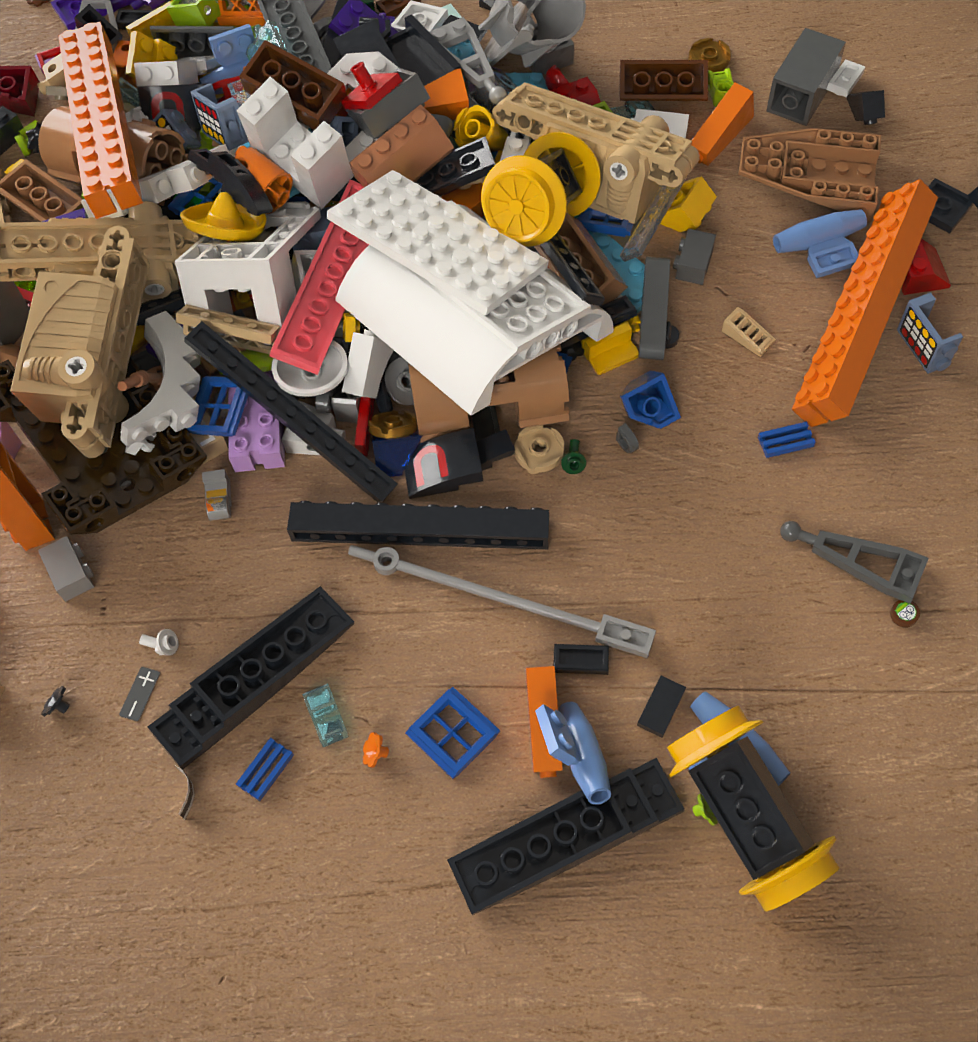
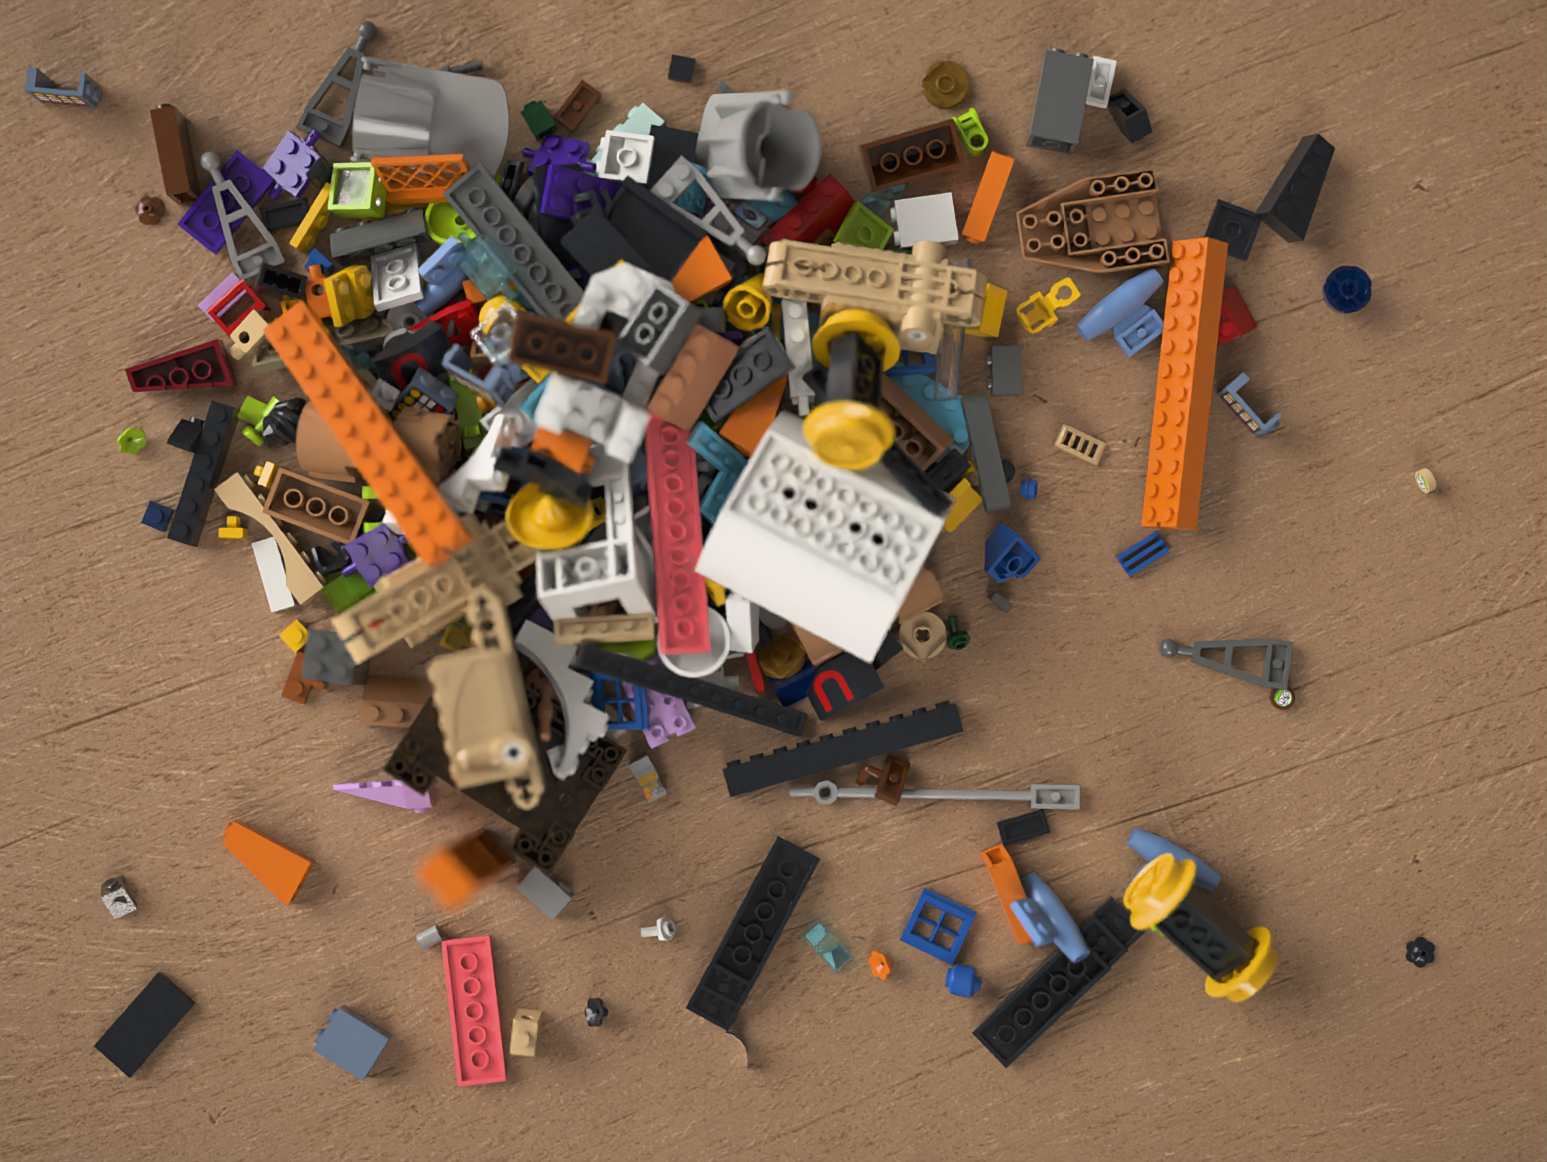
camera: 20 degrees left, 25 degrees up
(139, 693) = (660, 978): dark grey sticker -> none
(166, 73) = (390, 327): white brick -> none
(257, 762) = (790, 1028): blue tile -> none
(370, 89) = (644, 328): red tile -> none
(438, 241) = (779, 497): white plate -> none
(454, 564) = (891, 779): none -> reddish brown plate
(457, 796) = (963, 980): none -> blue head
(661, 706) = (1102, 848): black tile -> none
(688, 354) = (1029, 488): none -> blue plate
(748, 212) = (1046, 306): none -> yellow piece

